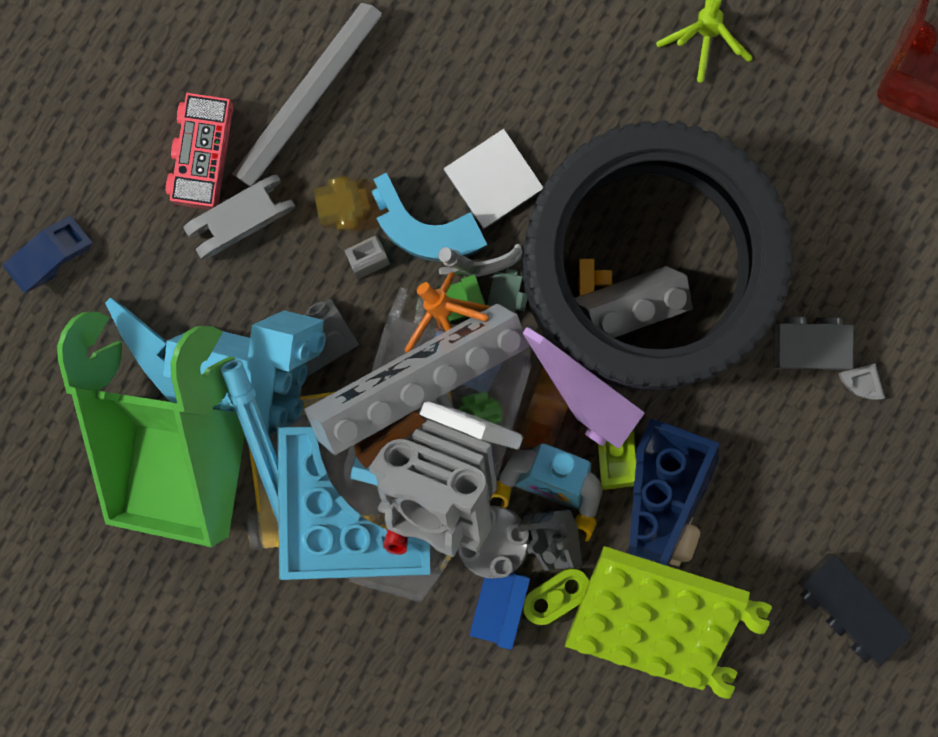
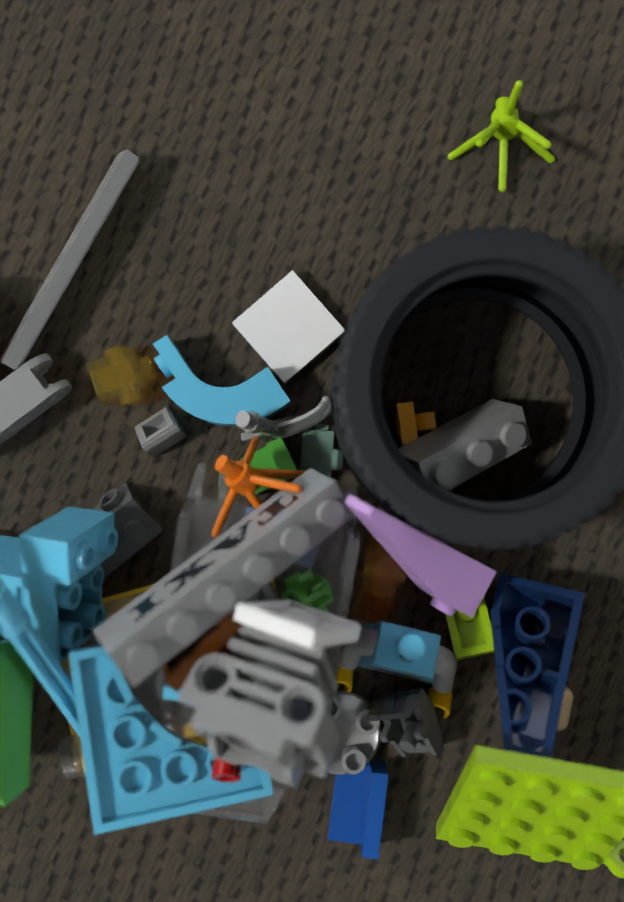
camera: 10 degrees left, 0 degrees up
(557, 597) = (423, 787): lime plate -> none

